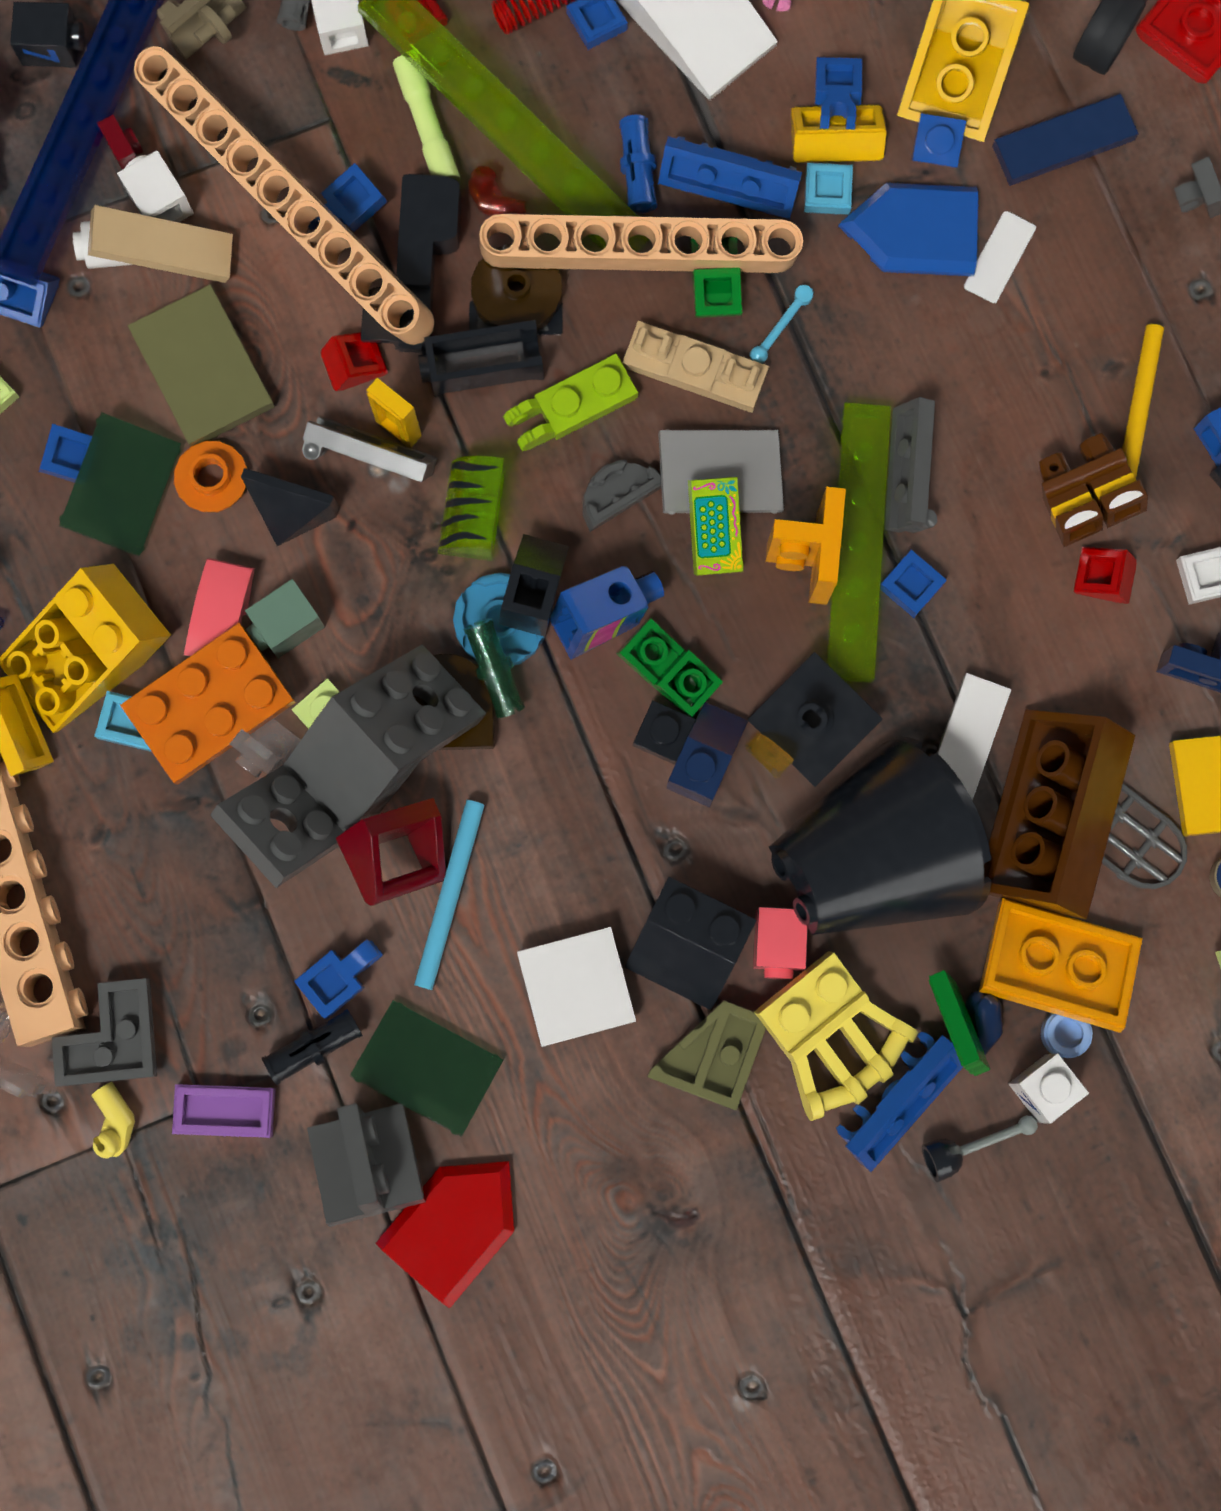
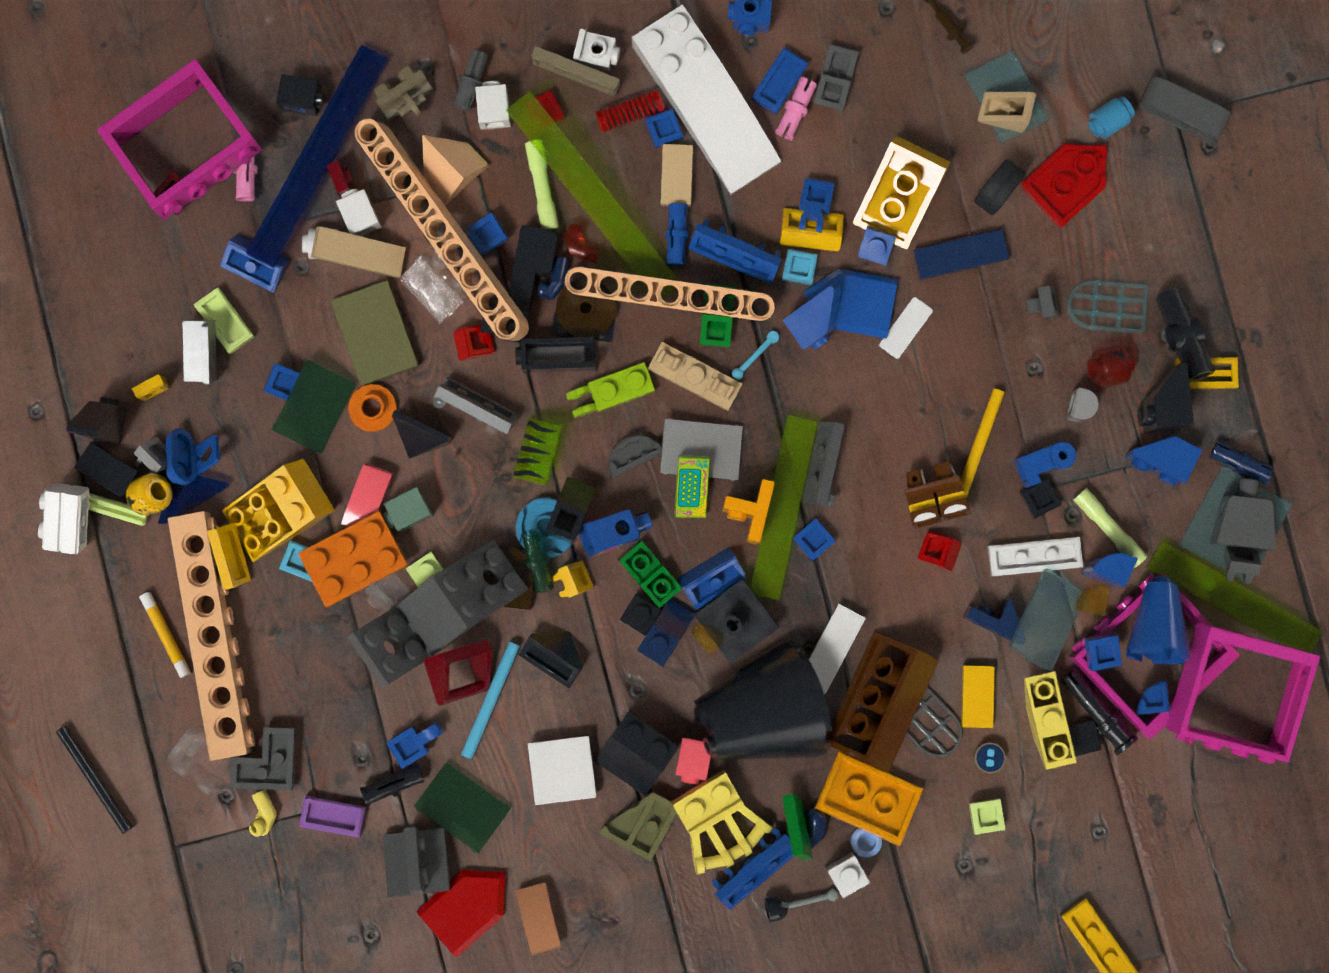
camera: 10 degrees right, 5 degrees up
(284, 107) = (450, 166): none -> light nougat slope
(285, 282) = (434, 285): none -> clear bracket
(393, 413) = (494, 387): yellow tile -> none
(468, 251) = (559, 272): none -> dark blue arm
(539, 812) = (553, 655): none -> black slope
(555, 689) = (574, 579): none -> yellow tile
(571, 1227) = (538, 918): none -> nougat slope
(624, 77) = (676, 174): none -> tan tile
(765, 662) = (712, 578): none -> blue slope
(866, 251) = (815, 318): none -> blue slope

